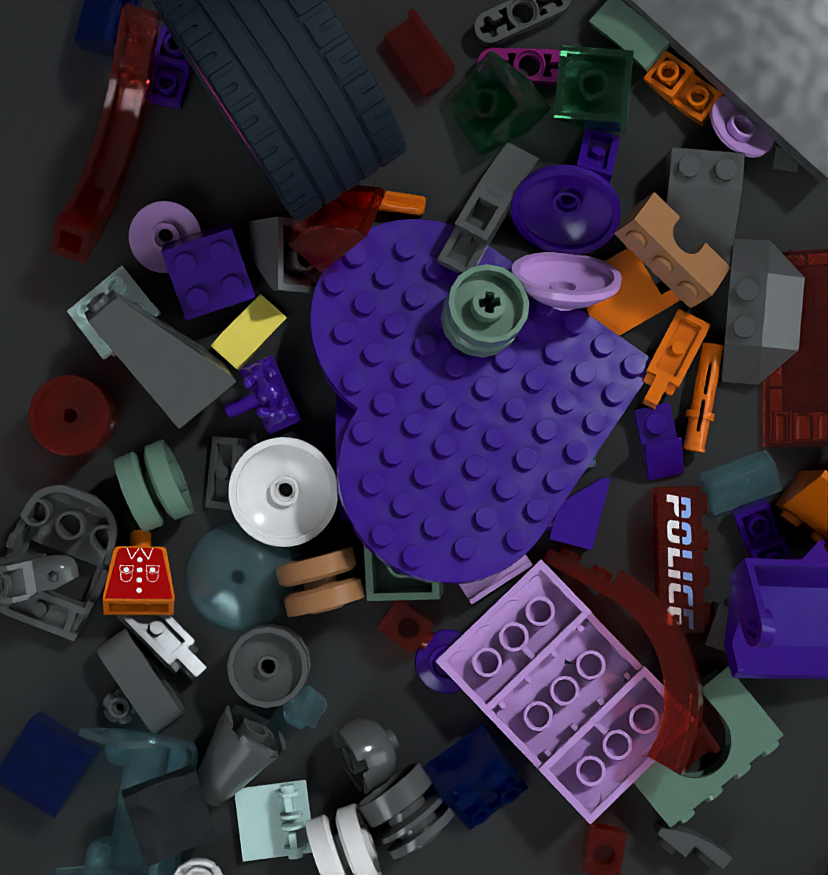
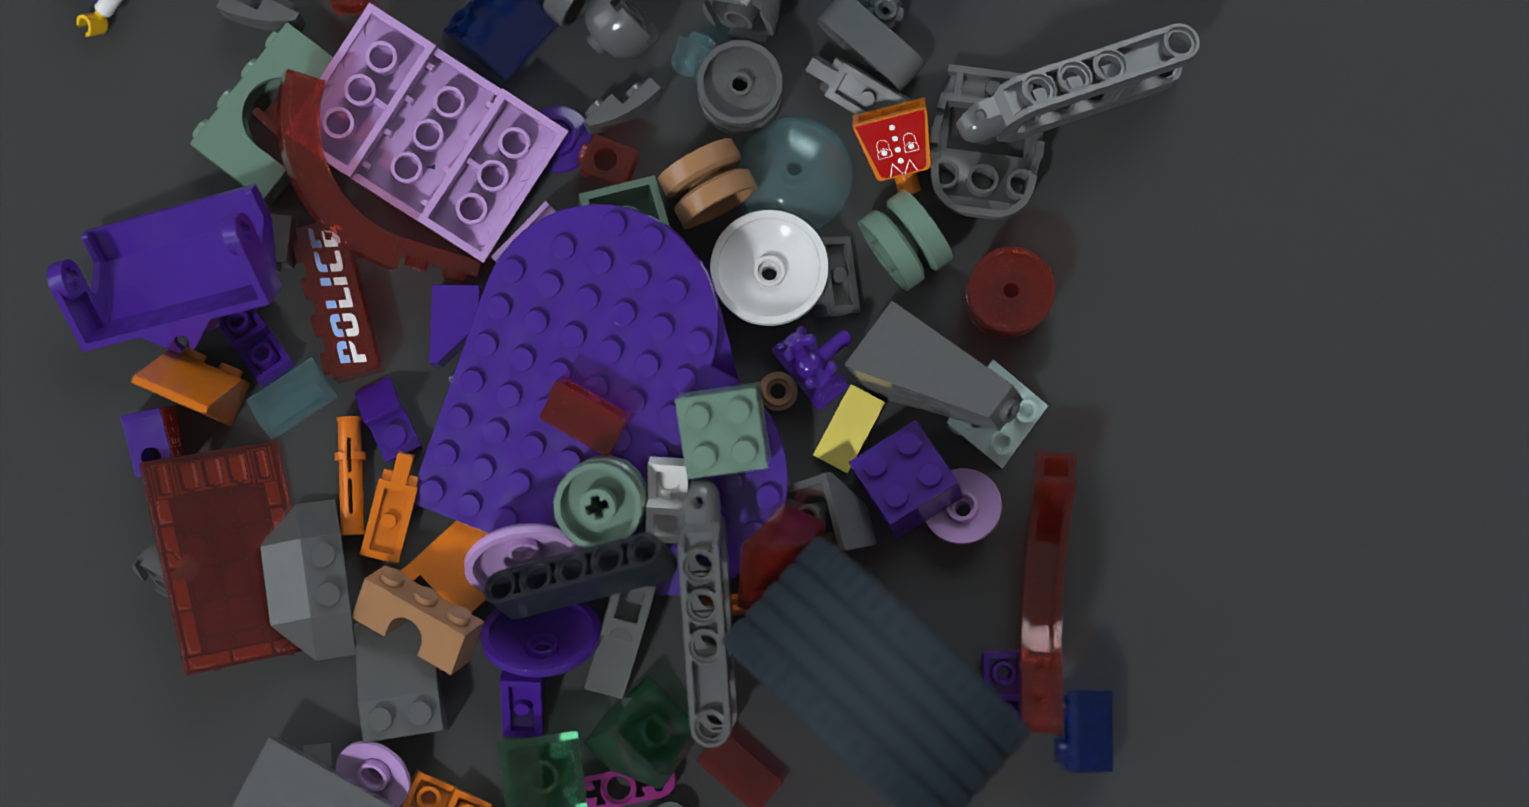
camera: 170 degrees right, 5 degrees down
(292, 381) = (789, 385): none -> medium nougat plate
(359, 345) = (723, 430): none -> sand green brick
(392, 671) = (611, 113): none -> dark grey slope
(406, 238) = (709, 667): none -> dark grey piece
(425, 300) = (666, 497): none -> white slope
(481, 392) = (584, 416): none -> clear red panel
(505, 240) = (581, 576): none -> black beam

